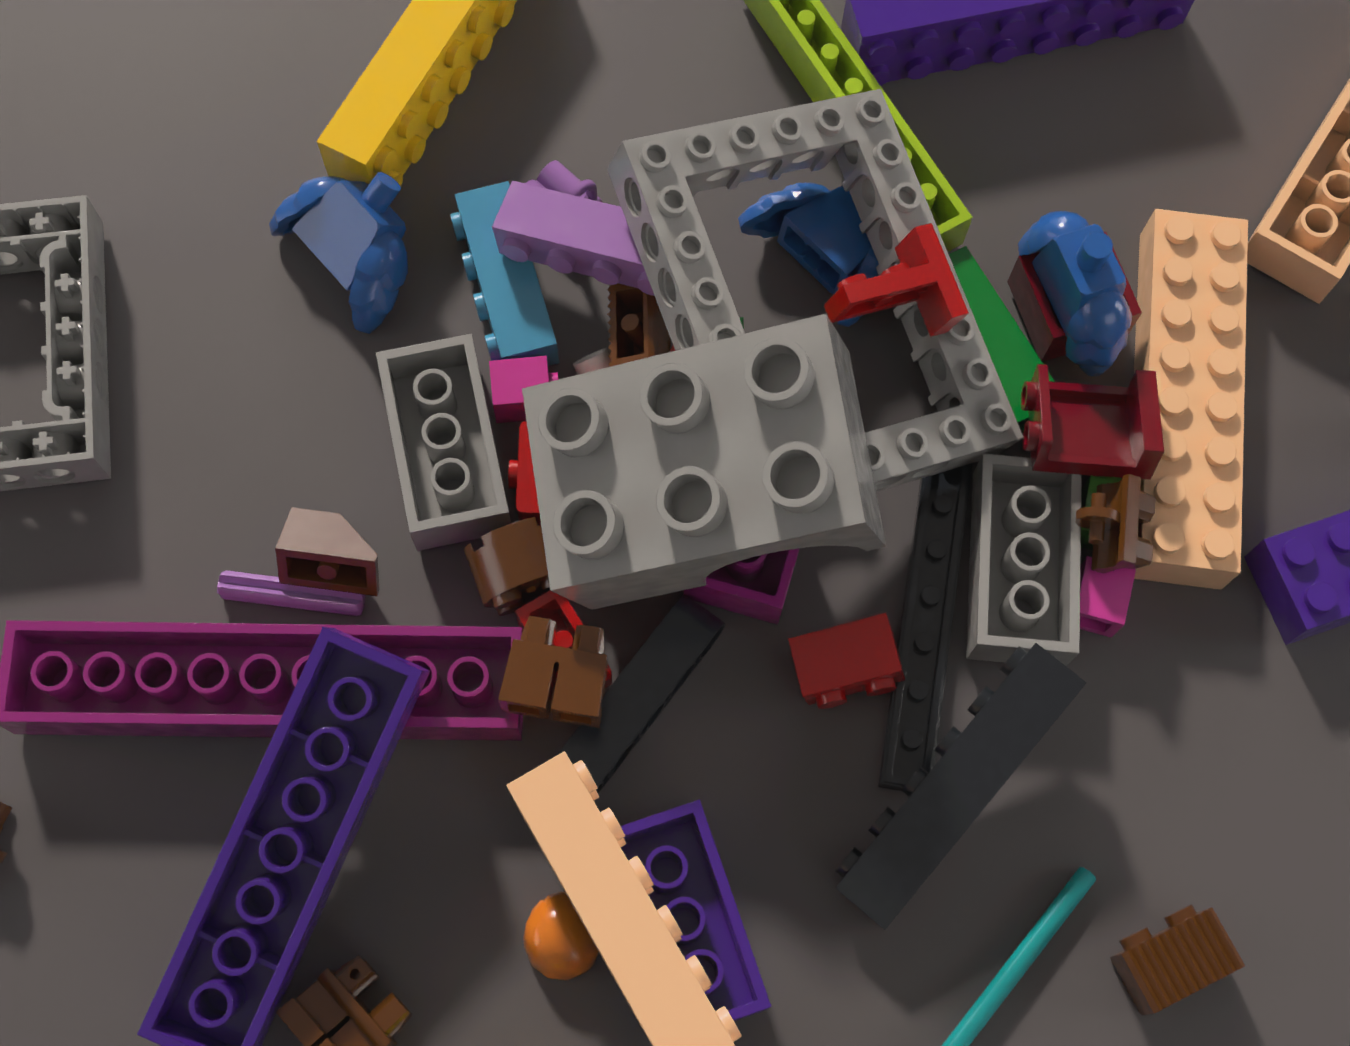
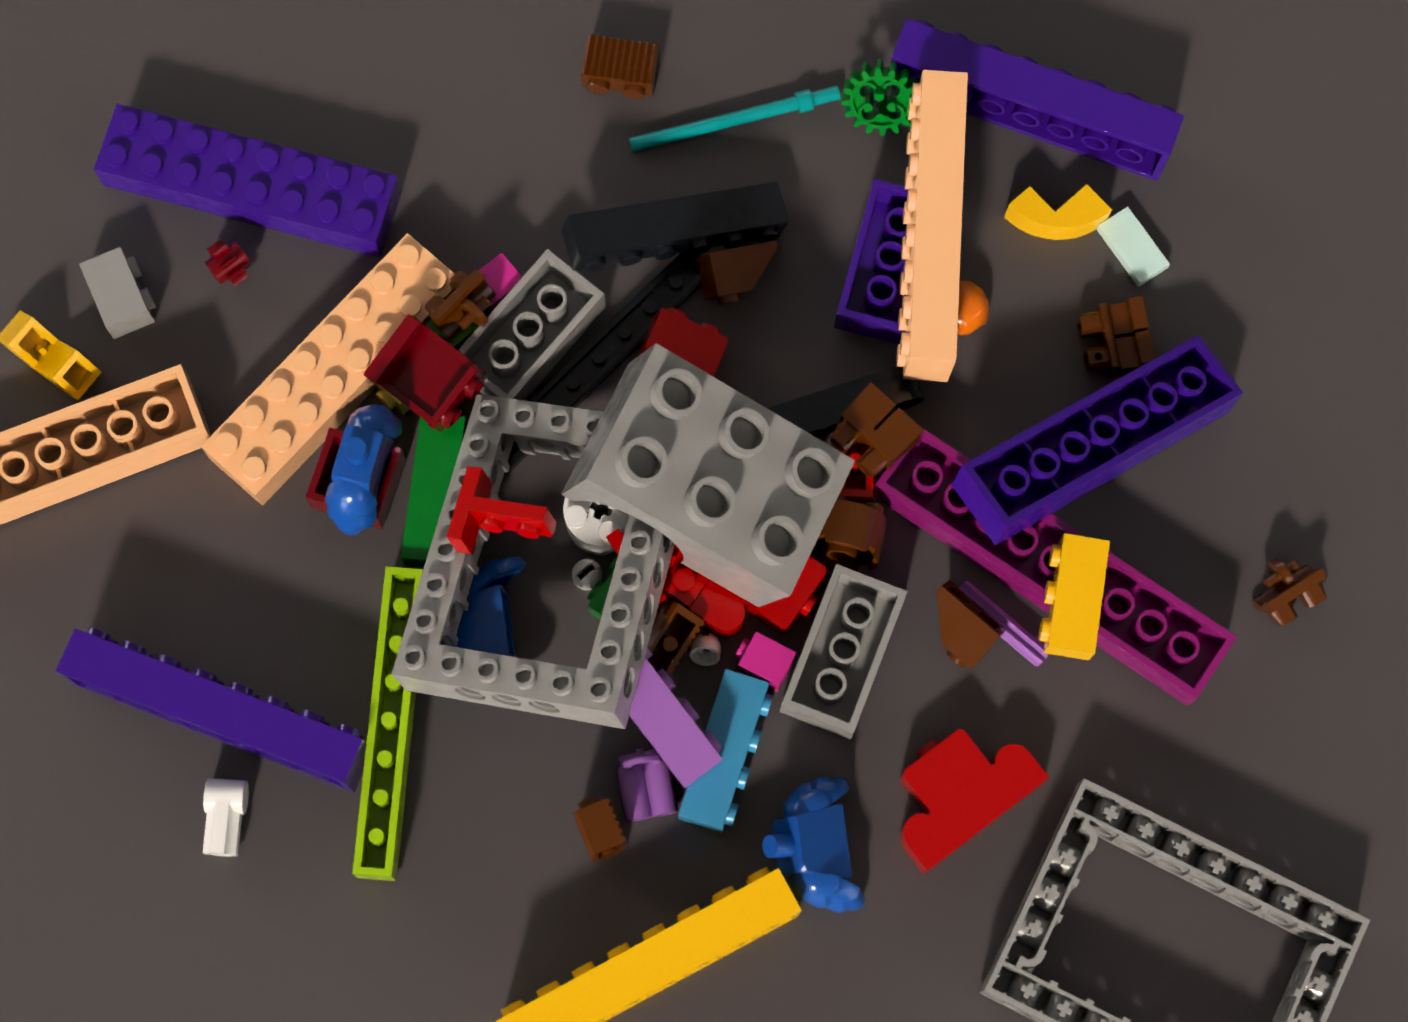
camera: 145 degrees left, 5 degrees up
(207, 633) = (1074, 596): none -> yellow brick
(226, 387) = (961, 794): none -> red brick
(575, 122) = (600, 828): none -> reddish brown brick
(855, 791) = (733, 270): none -> reddish brown slope

